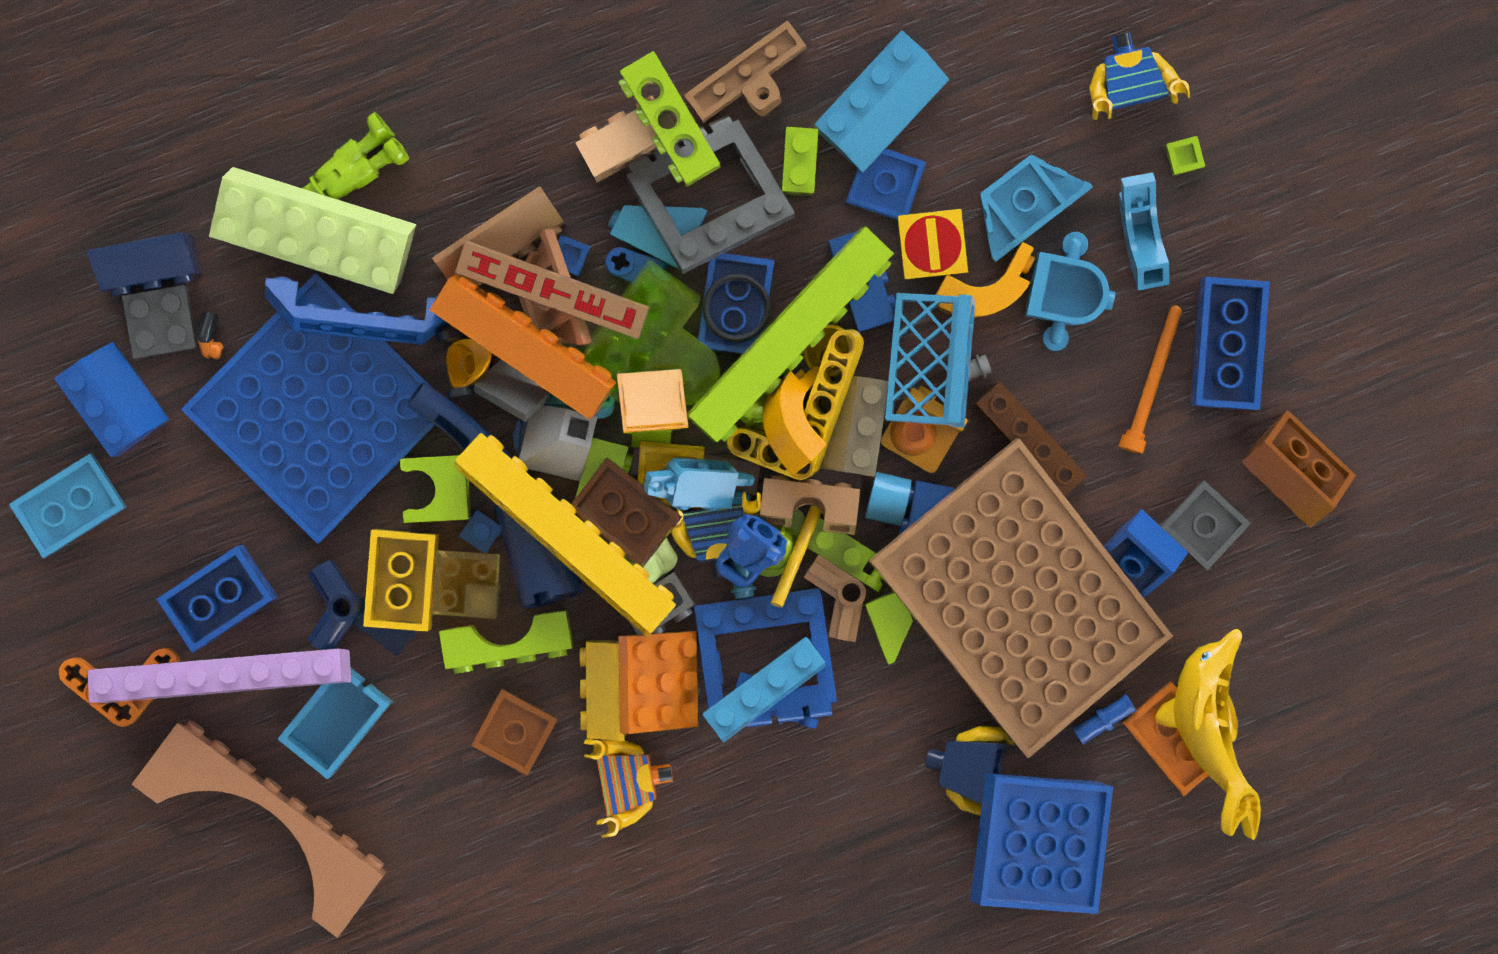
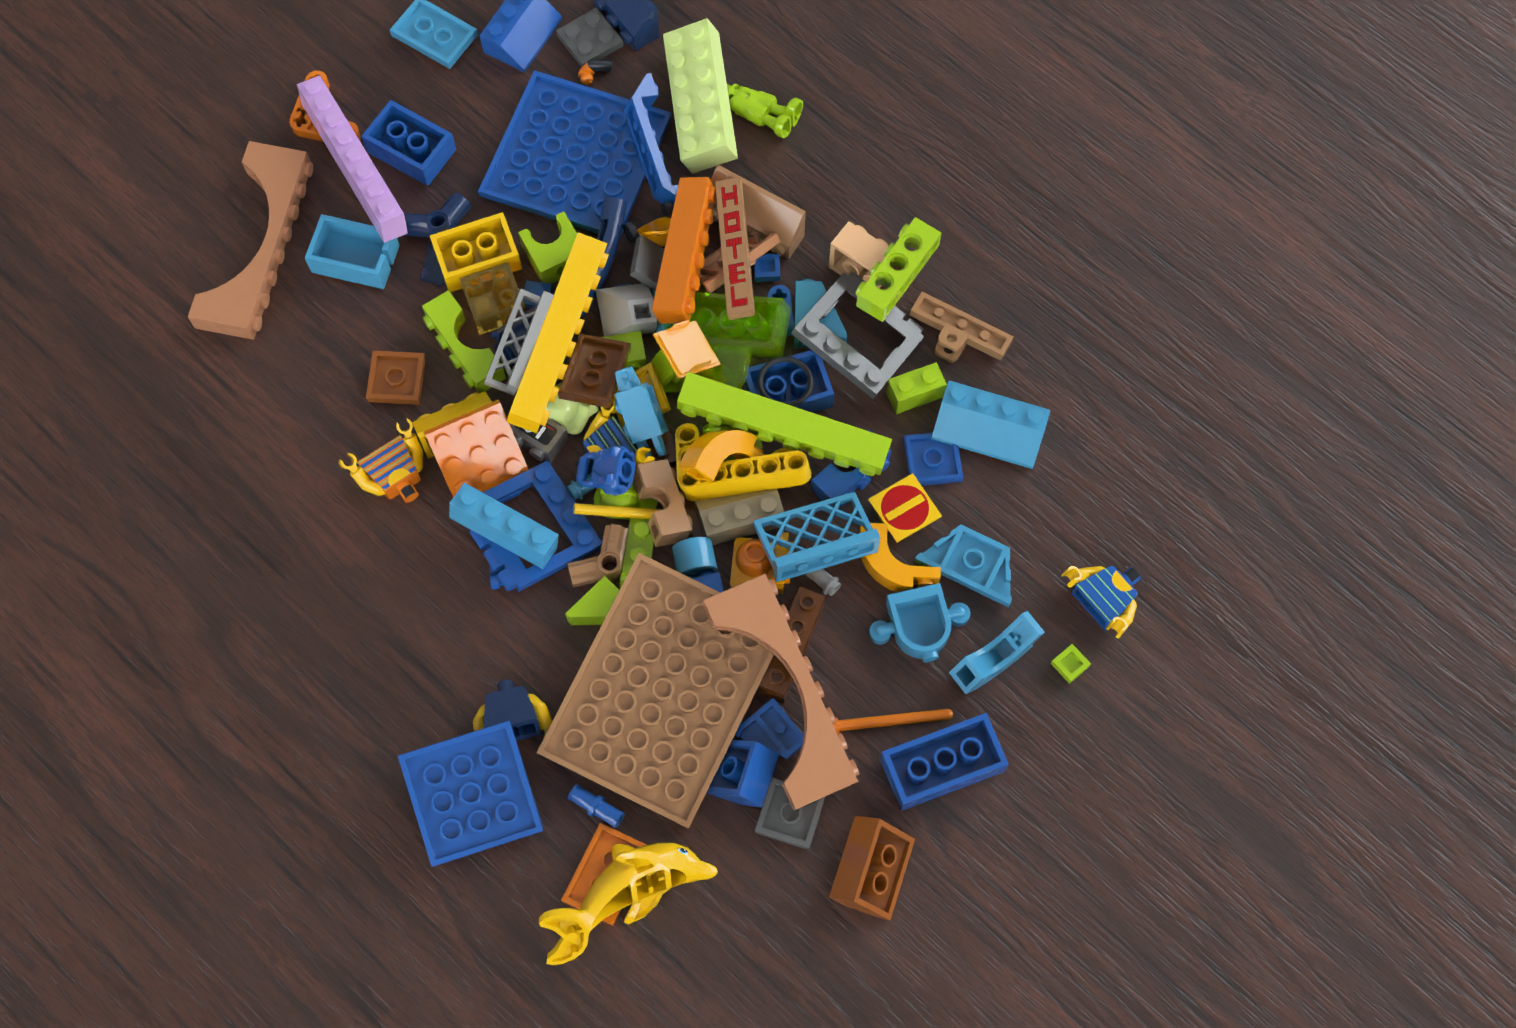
camera: 65 degrees right, 20 degrees down
(567, 574) = (529, 340): none -> light grey fence
(996, 470) = (755, 613): none -> nougat arch
(1111, 500) = (772, 729): none -> blue wing

